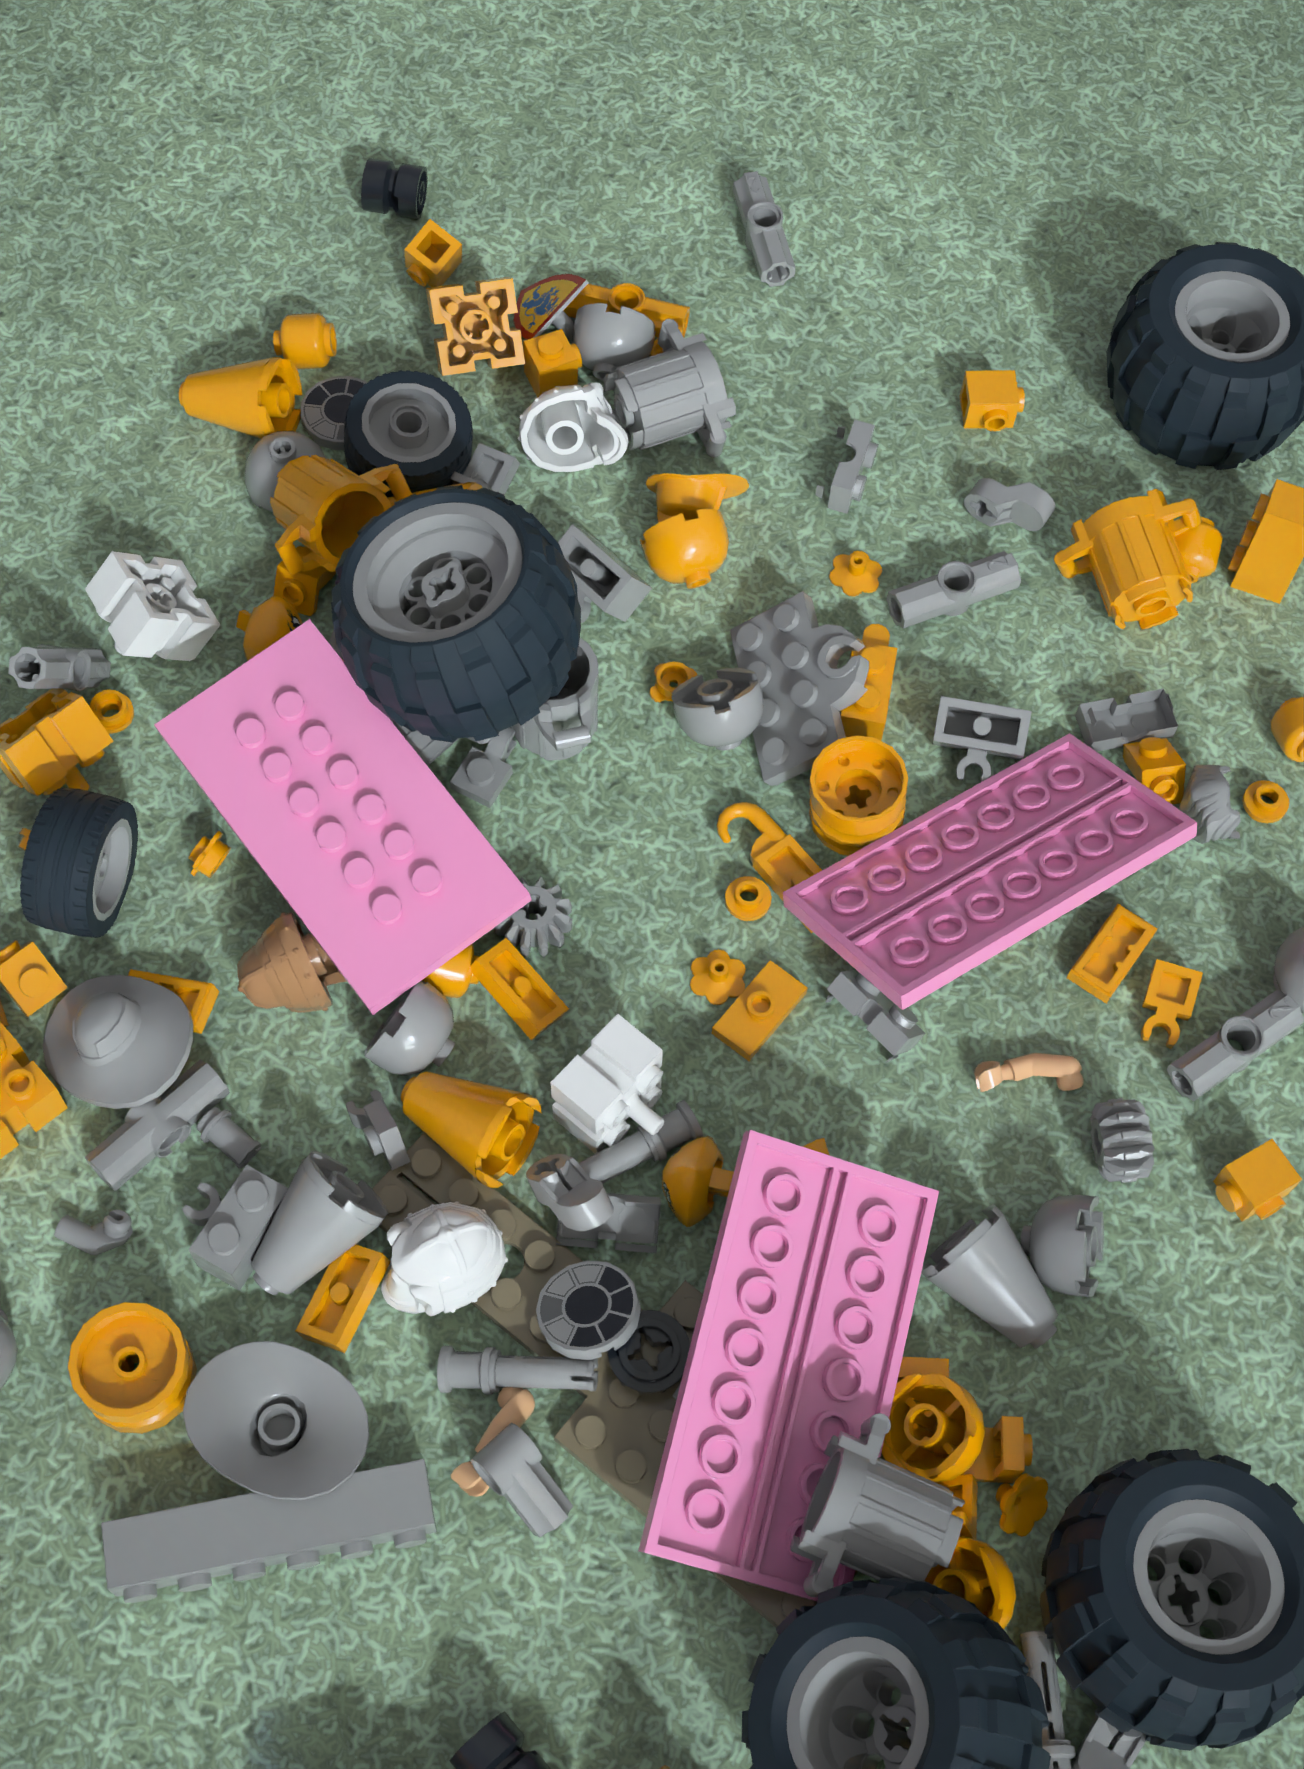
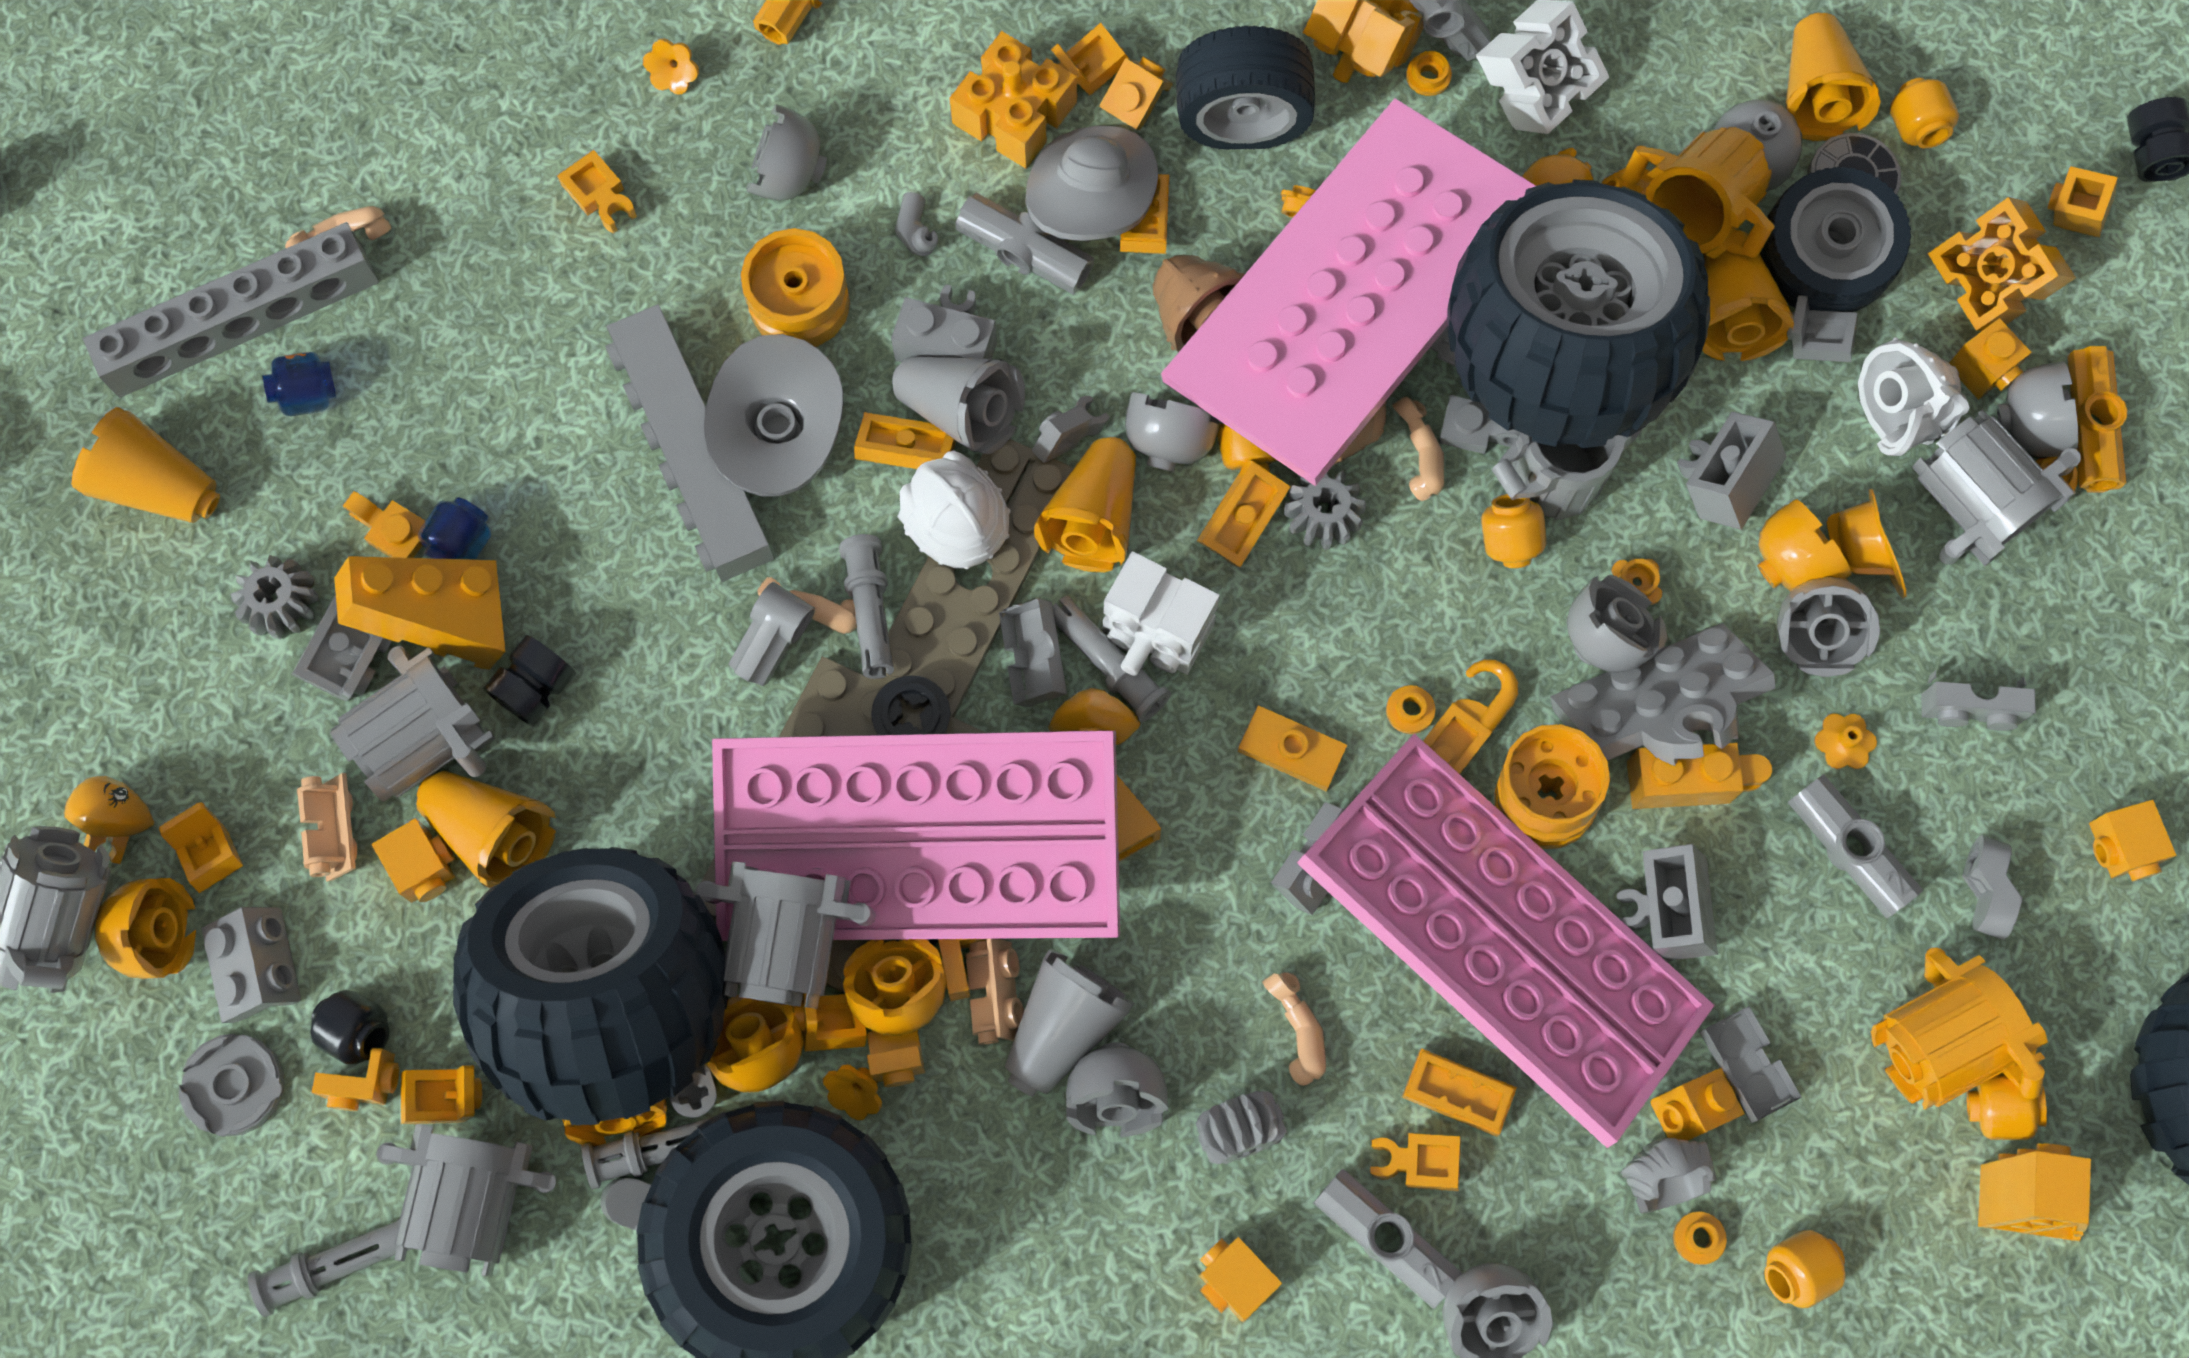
camera: 80 degrees right, 10 degrees up
(228, 1136) = (1030, 305): light grey pin -> none
(527, 818) = (1430, 453): none -> light nougat arm
(544, 305) = (2063, 332): shield -> none
(570, 1192) = (1038, 602): light grey piece -> none
(588, 1309) = (934, 648): tile -> none
(605, 763) = (1513, 531): none -> light orange head
(714, 984) = (1317, 712): light orange plant -> none
(762, 546) = (1827, 626): none -> light grey cylinder
(965, 1343) = (994, 966): none -> light nougat hinge

